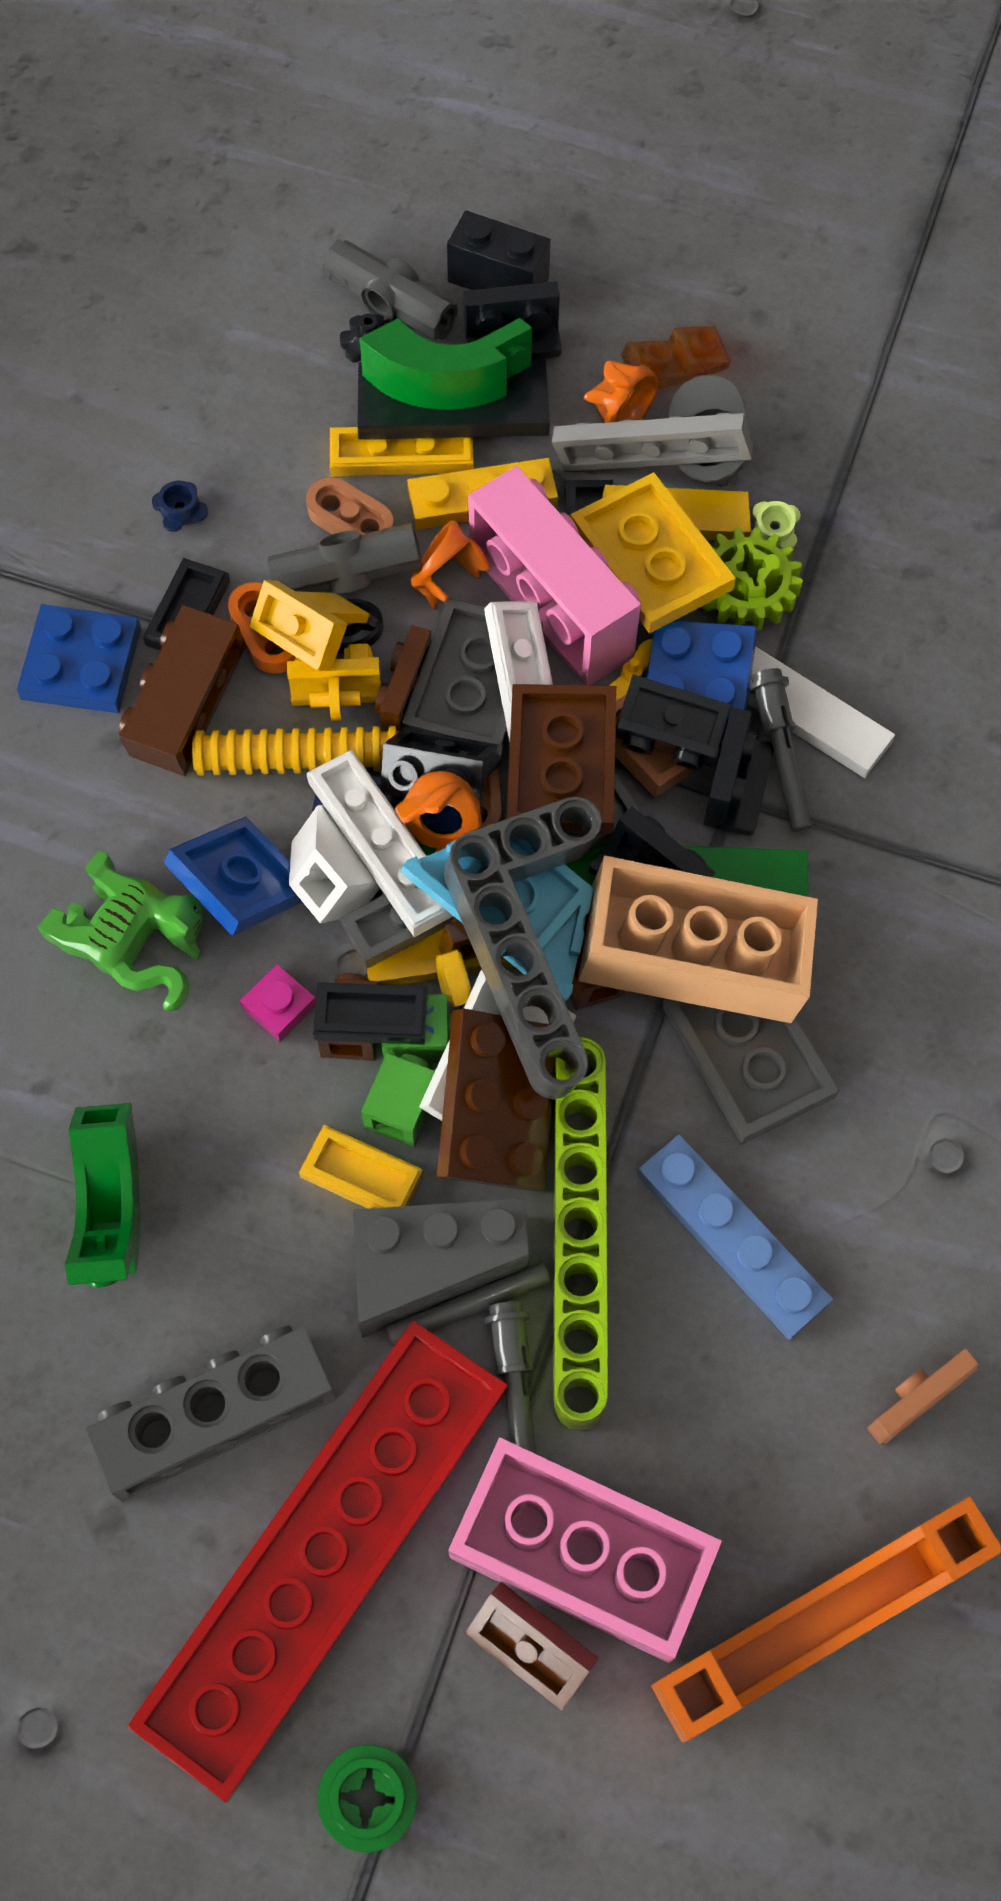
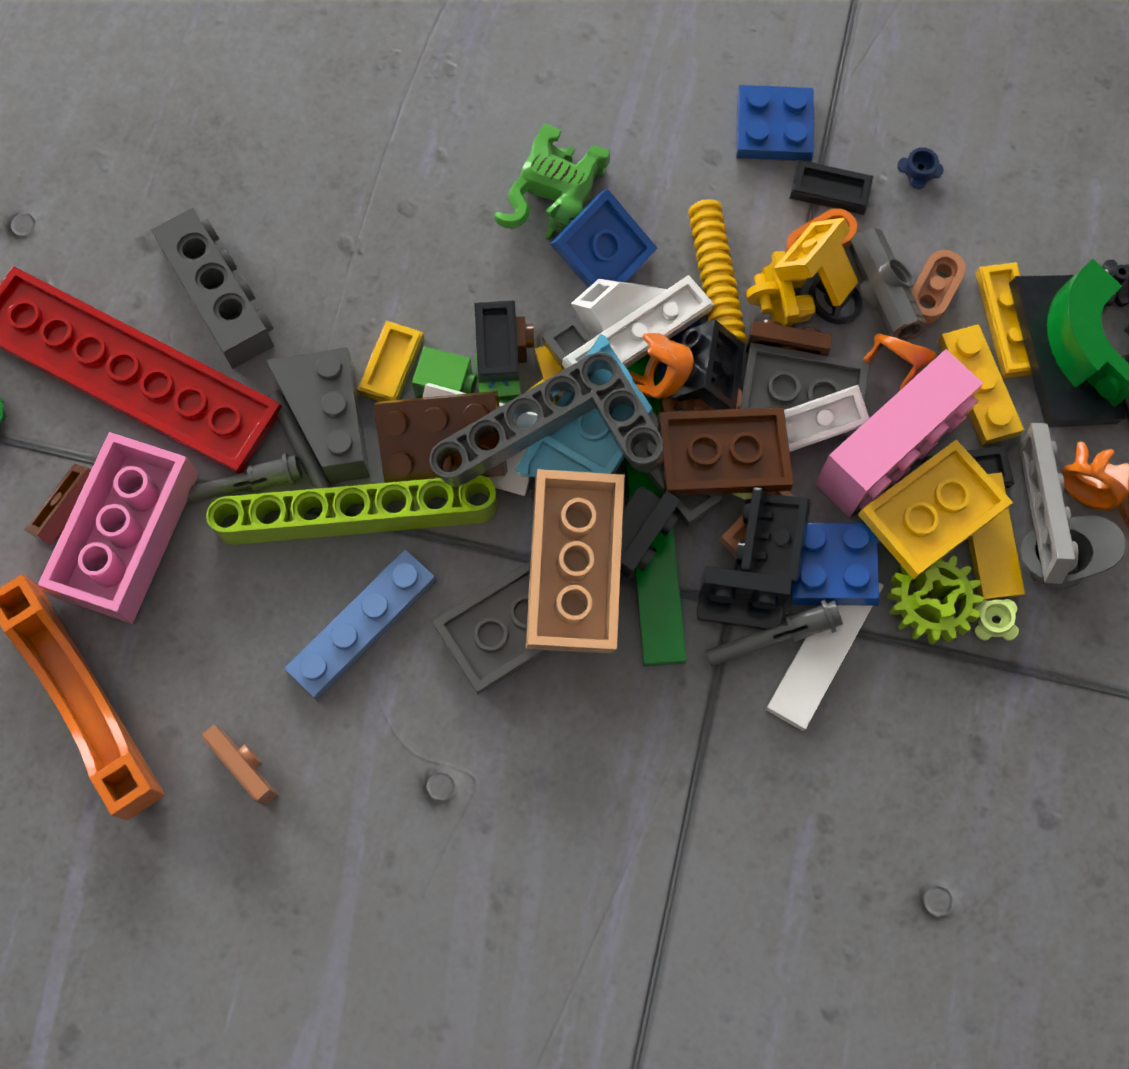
camera: 85 degrees right, 5 degrees up
(106, 1196) = (354, 203): green arch -> none
(181, 689) = (754, 187): reddish brown brick -> none
(278, 1002) = (515, 286): dark pink plate -> none
(635, 666) = (828, 513): yellow piece -> none

